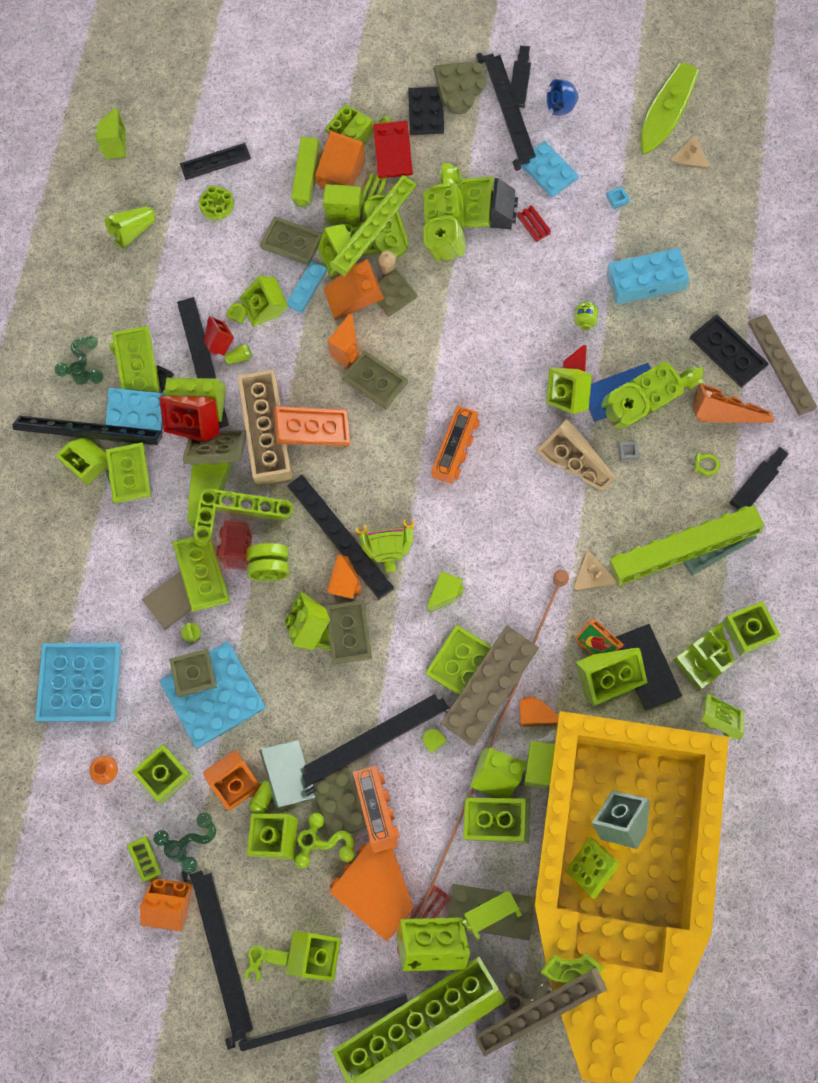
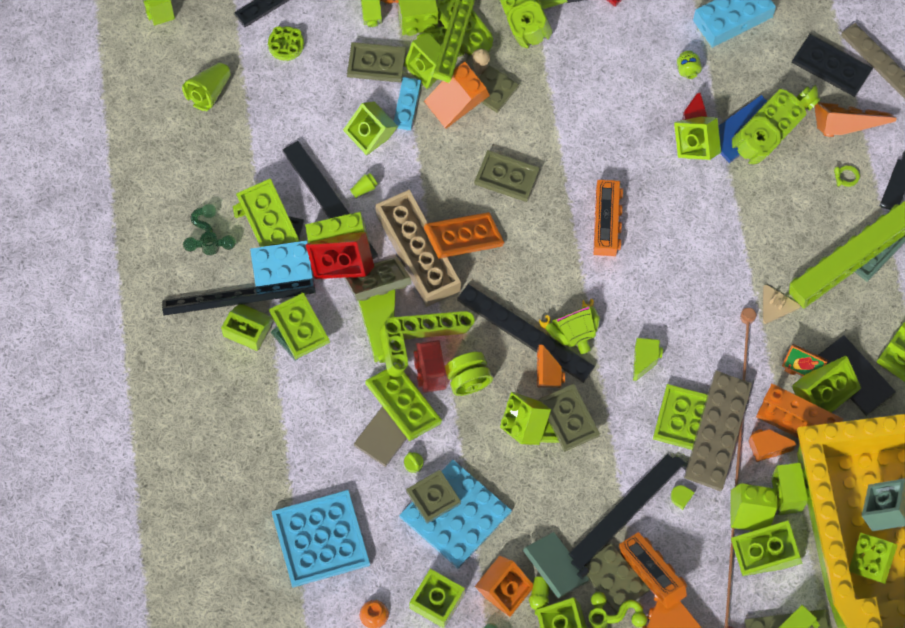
camera: 25 degrees left, 5 degrees down
(217, 336) = (338, 173): red slope -> none
(237, 312) = (347, 145): lime tile -> none
(343, 343) = (469, 147): orange slope -> none
(569, 691) = (791, 411): none -> orange fence
(573, 452) = (719, 196): tan wedge -> none
(628, 451) = (770, 182): light grey tile -> none

